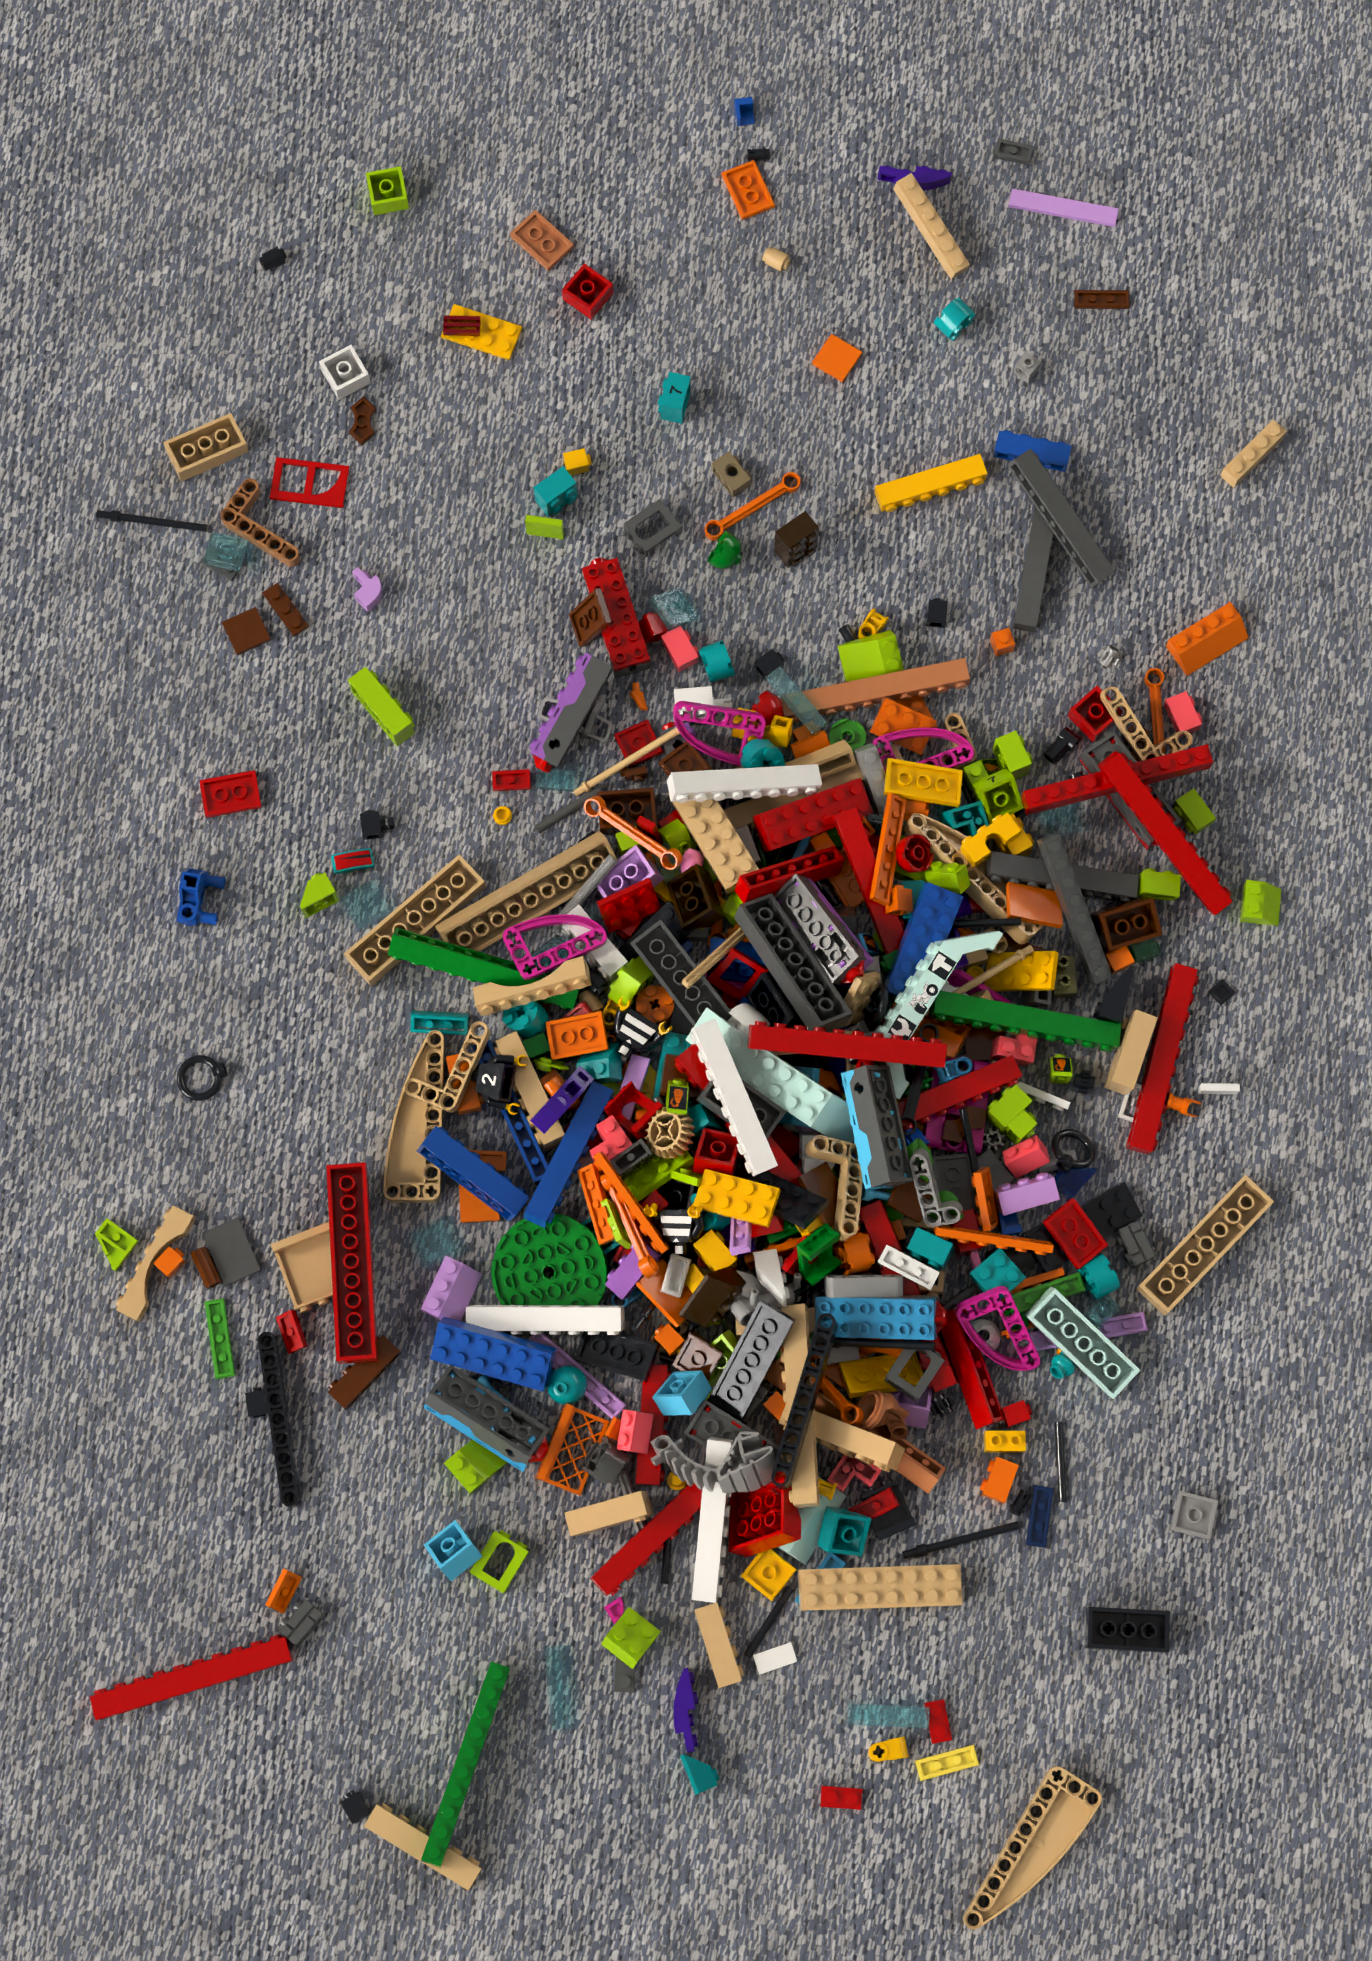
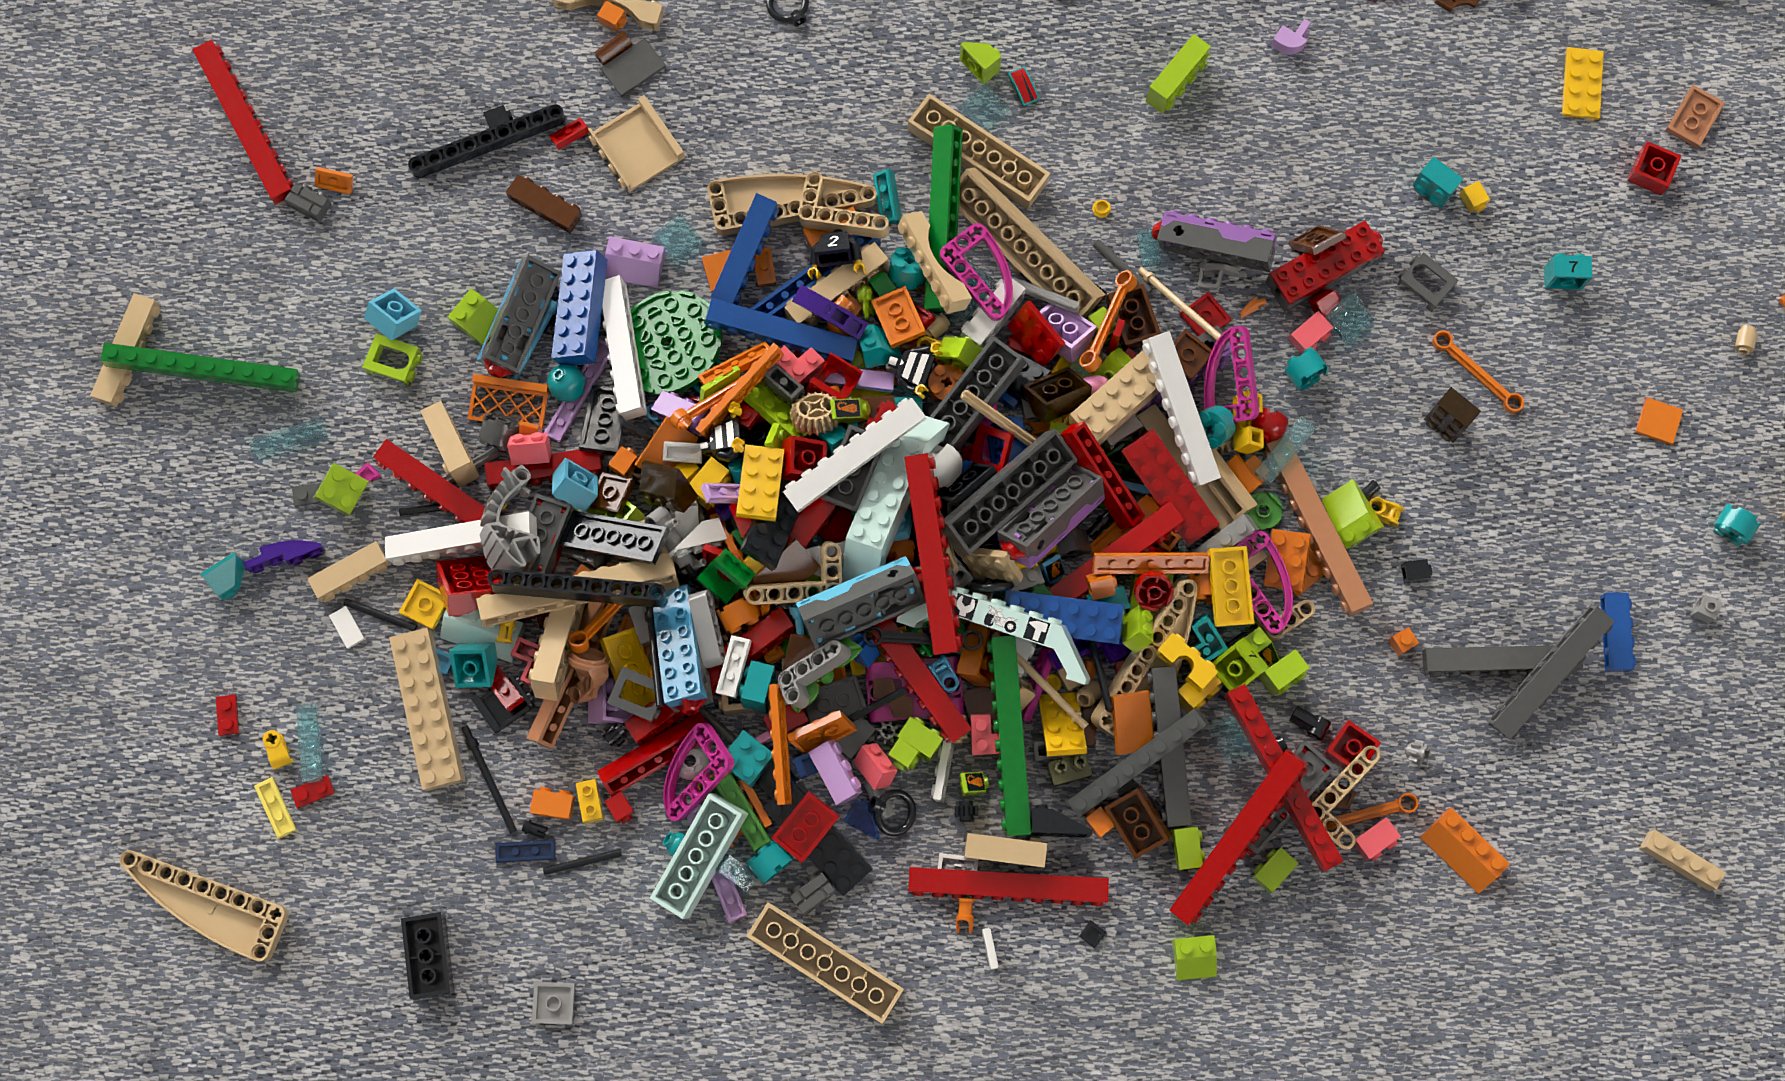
camera: 75 degrees right, 0 degrees up
(220, 1338) = (552, 76): bright green tile -> none
(352, 1263) = (637, 164): red brick -> none
(355, 1806) = (152, 284): black brick -> none
(373, 825) = (1062, 95): black brick -> none
(454, 321) = (1582, 47): dark red tile -> none
(511, 780) = (1138, 208): red plate -> none
(544, 527) = (1398, 179): lime tile -> none
(598, 983) = (955, 322): black brick -> none
(636, 774) = (1172, 319): reddish brown bracket -> none
(699, 695) = (1262, 359): white brick -> none
(726, 552) = (1421, 355): green cylinder -> none
(733, 484) = (1512, 336): dark tan brick -> none
(768, 663) = (1320, 419): black brick -> none
(930, 483) = (1552, 538): yellow brick -> none
(1144, 950) = (1115, 847): clear green brick -> none

